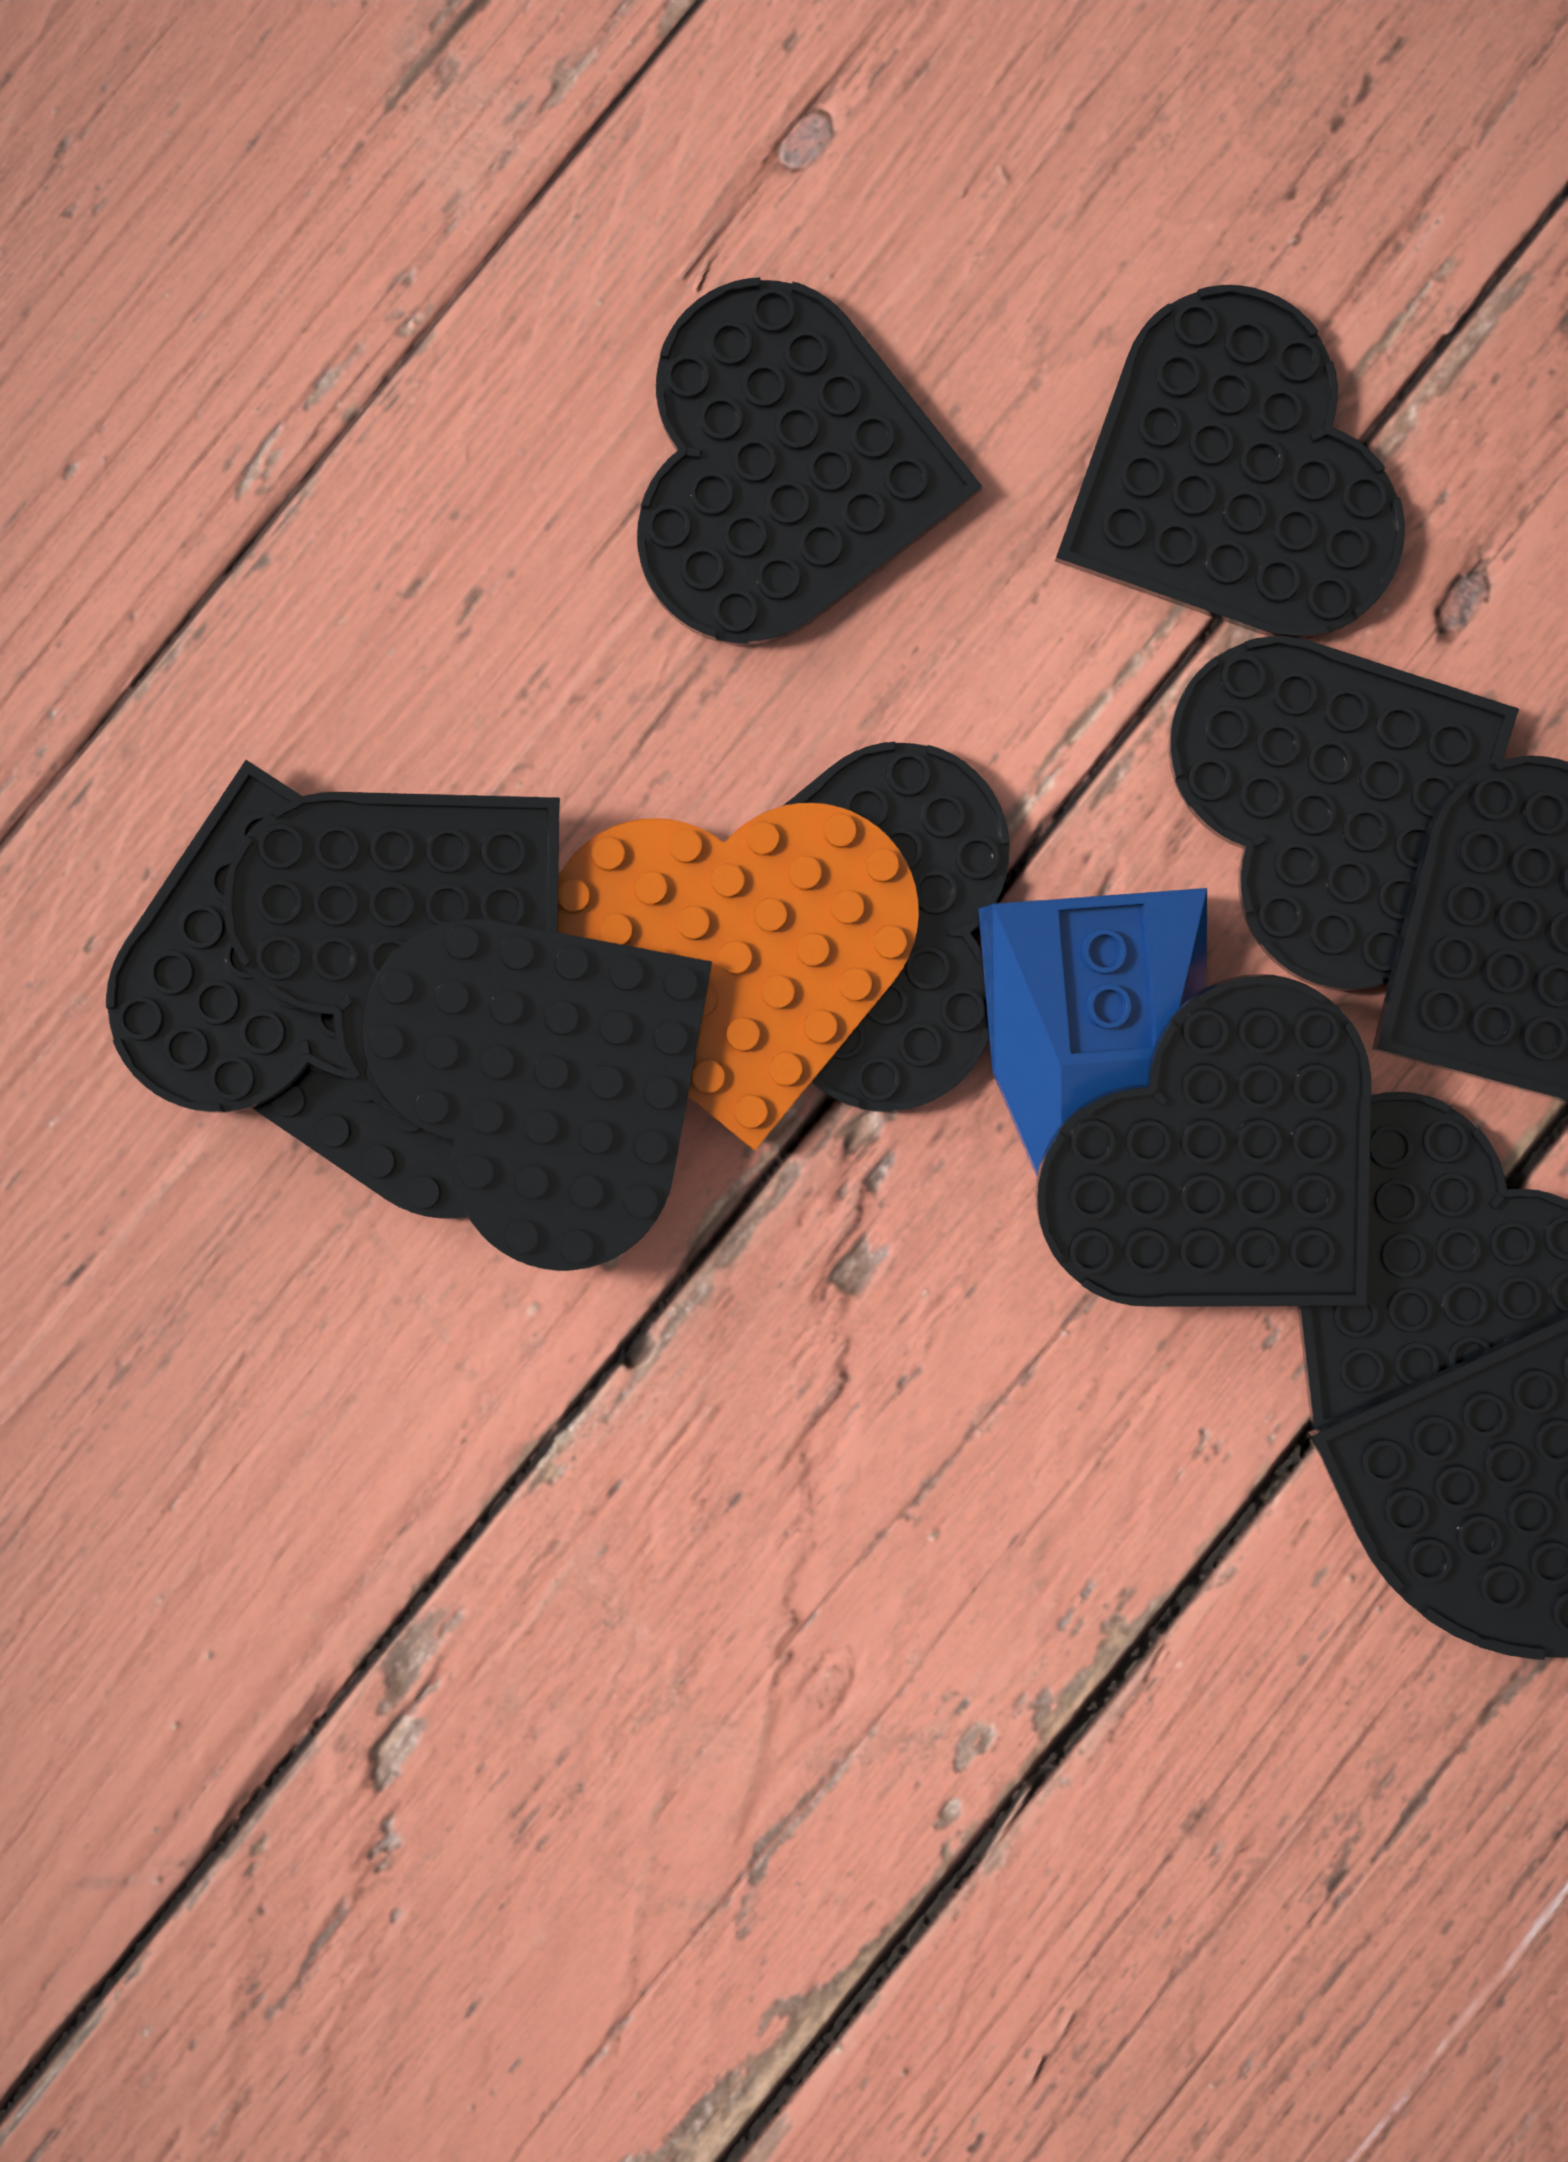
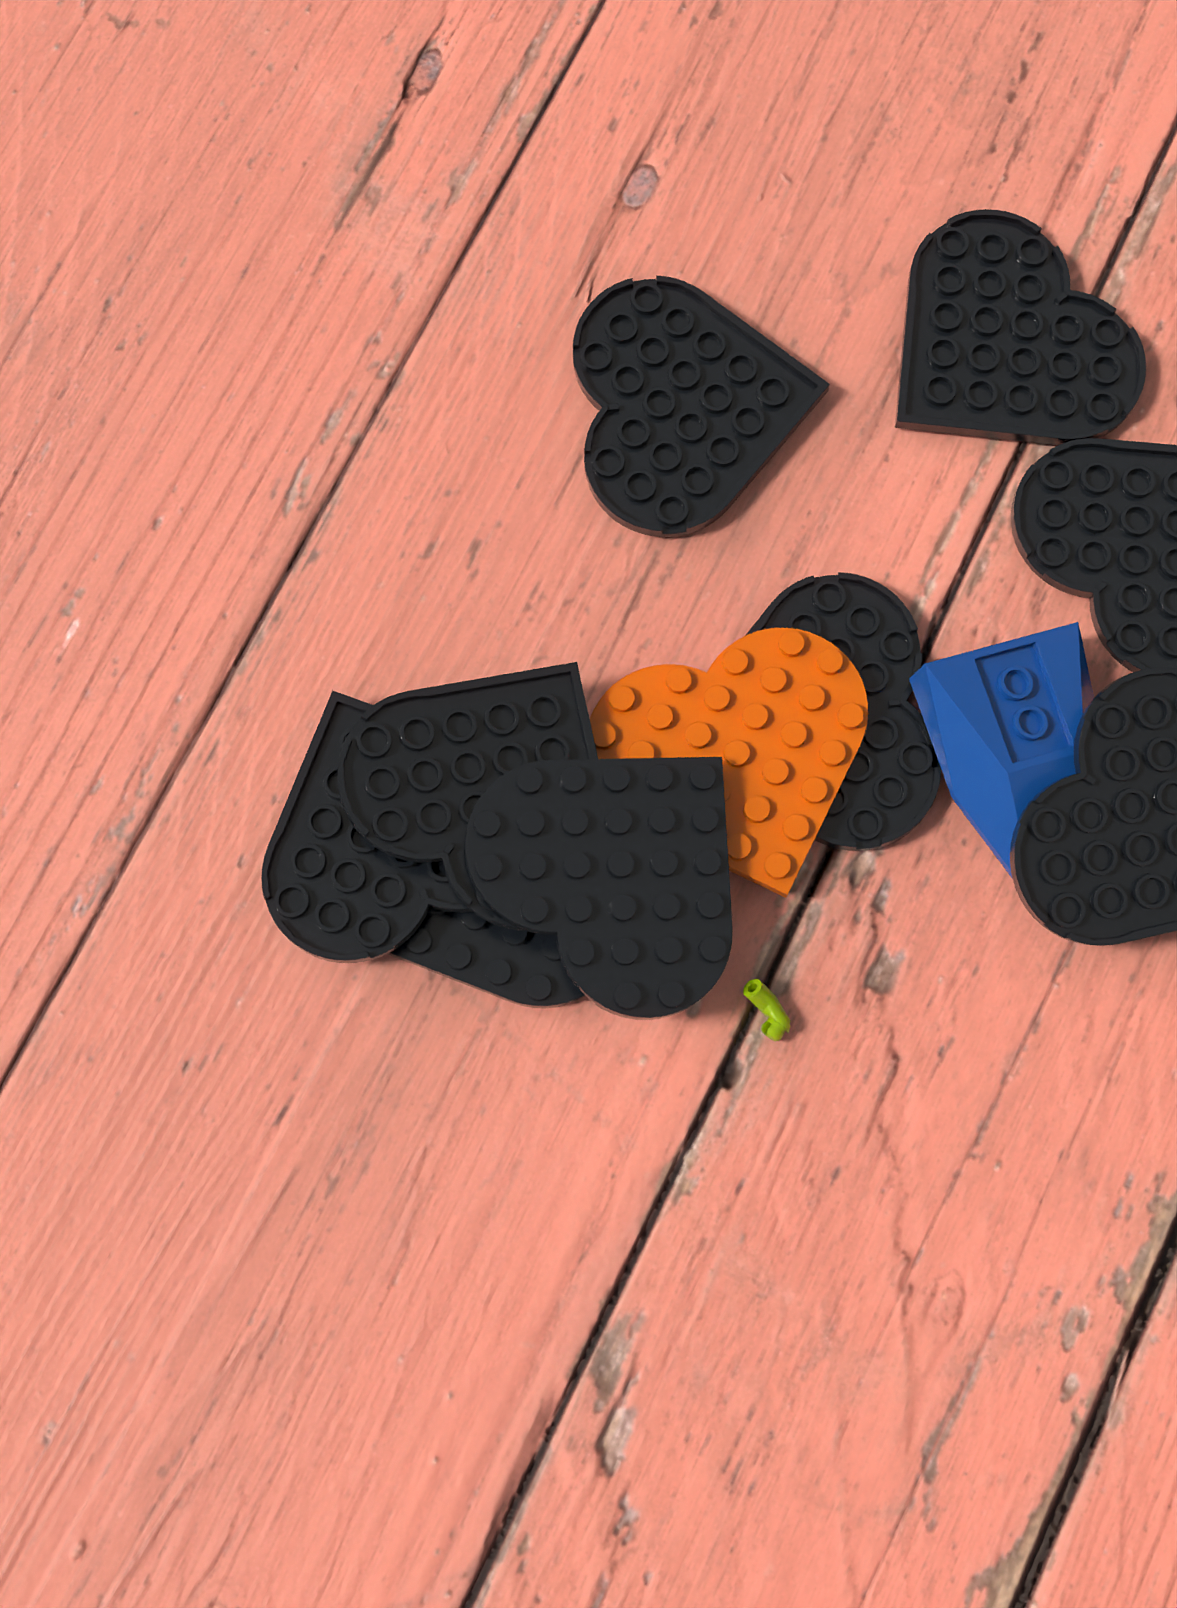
camera: 10 degrees left, 10 degrees down
(703, 1279) = (769, 1005): none -> lime arm

